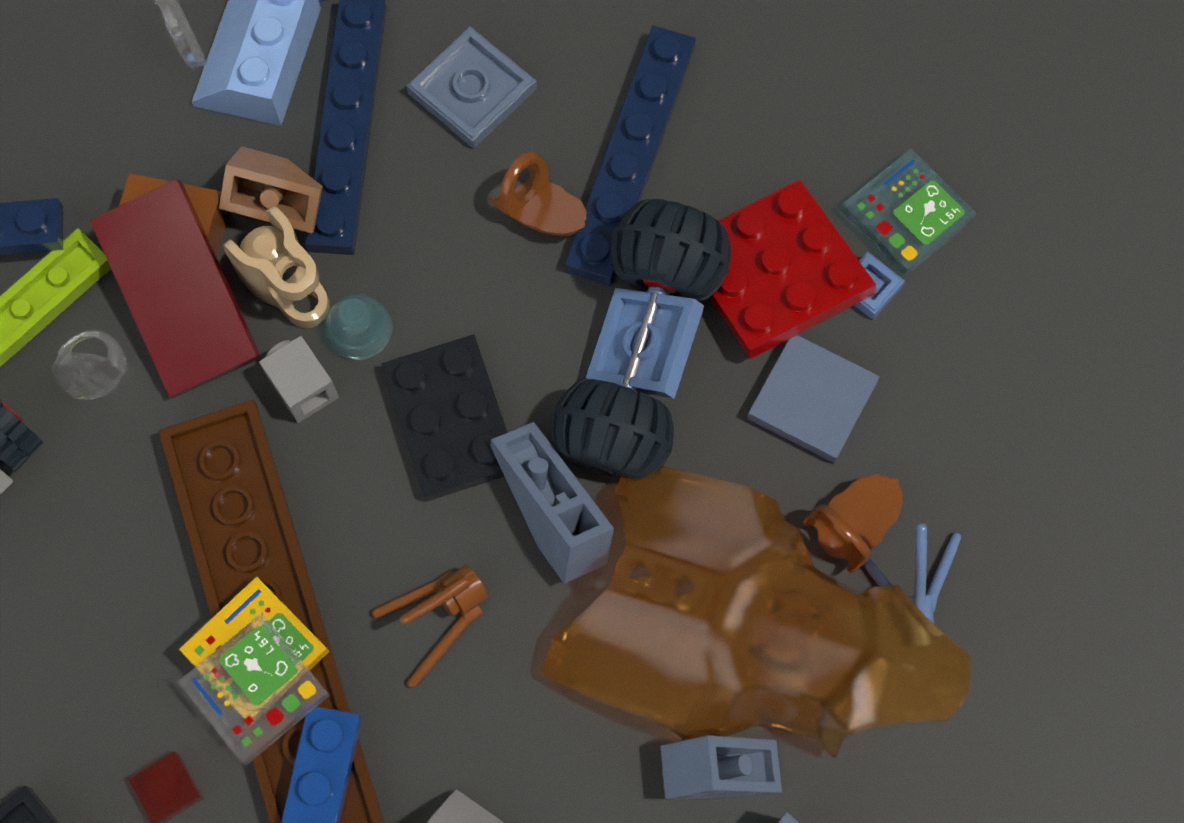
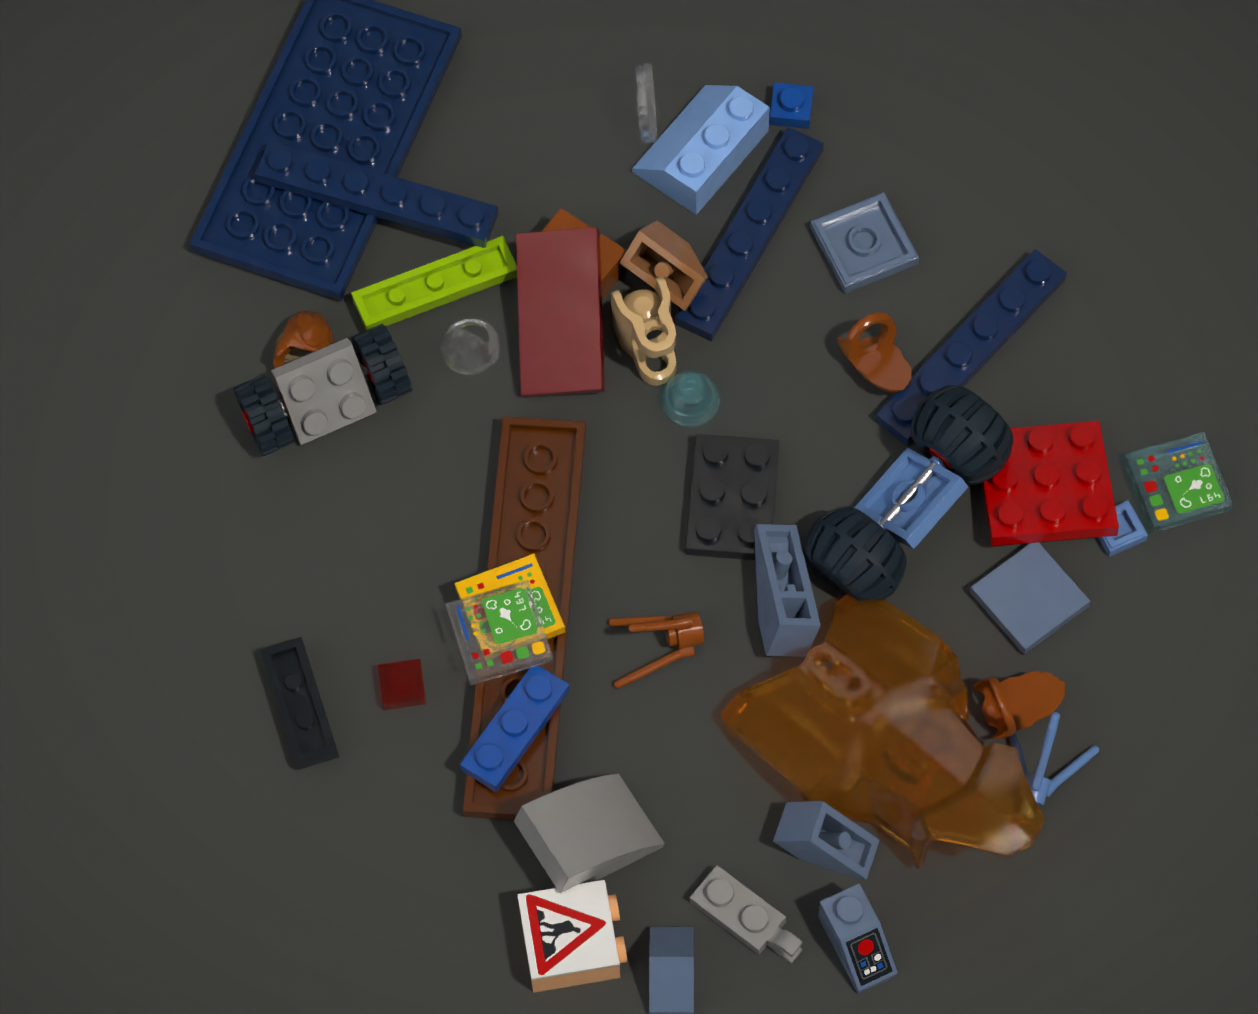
camera: 25 degrees right, 5 degrees down
(298, 378) = (627, 420): light grey brick -> none

